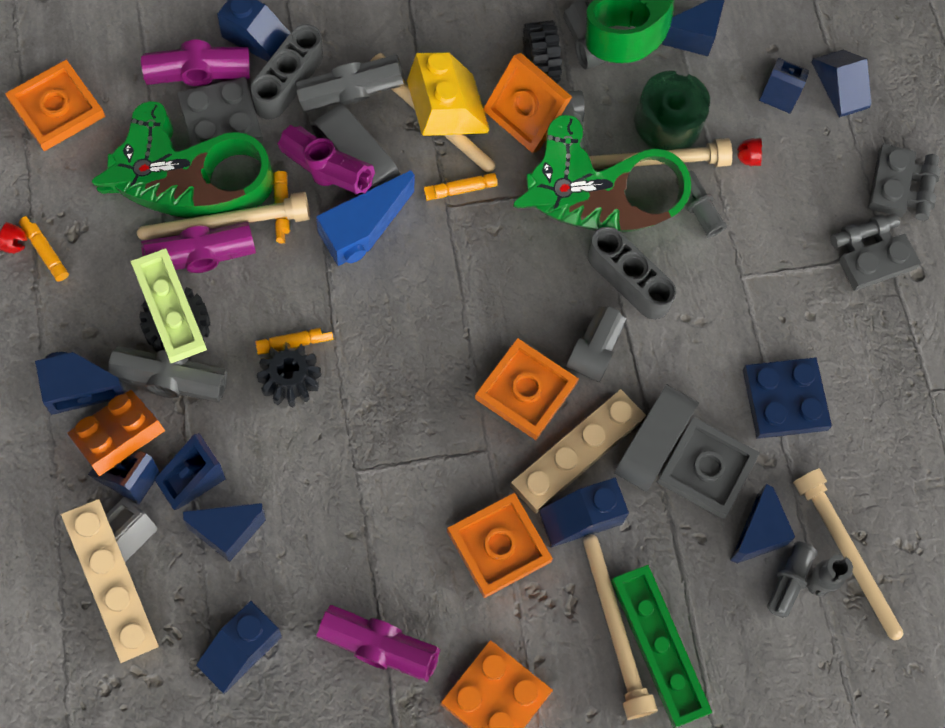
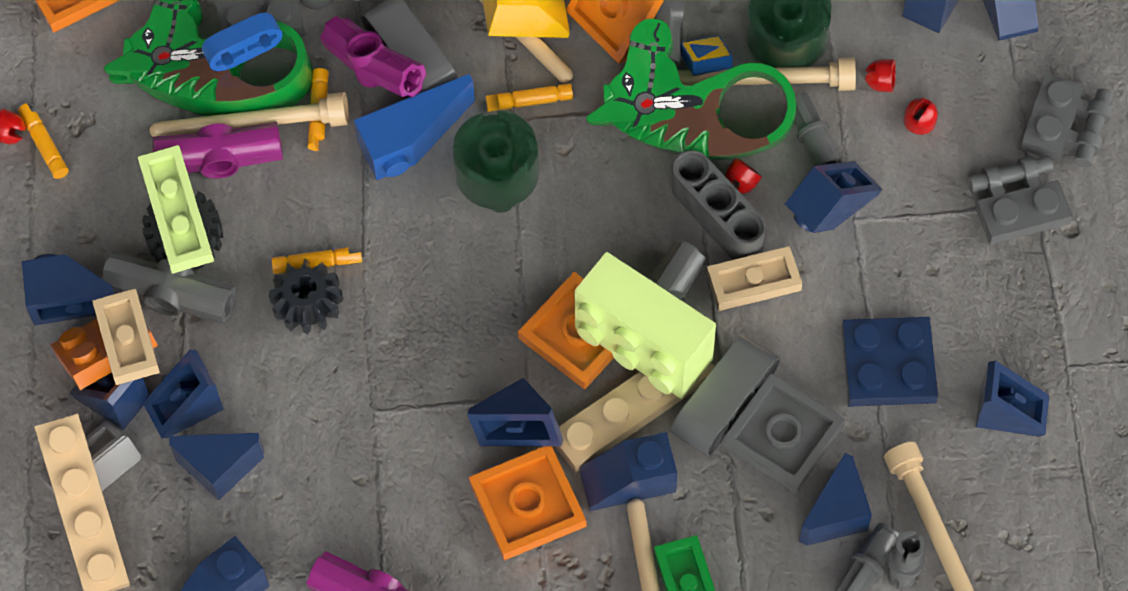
camera: 15 degrees right, 5 degrees down
(136, 428) = (125, 336): none -> tan plate
(212, 153) = (242, 41): none -> blue beam
(441, 244) = (496, 160): none -> clear green brick
(483, 472) = (515, 418): none -> dark blue slope
(587, 385) = (643, 326): none -> yellowish green brick
(606, 142) = (706, 55): none -> blue tile
(648, 243) = (744, 175): none -> red hinge
(667, 333) = (754, 278): none -> tan plate
(723, 259) = (831, 195): none -> dark blue slope
(794, 187) = (928, 119): none -> red hinge
(890, 428) = (1011, 403): none -> dark blue slope

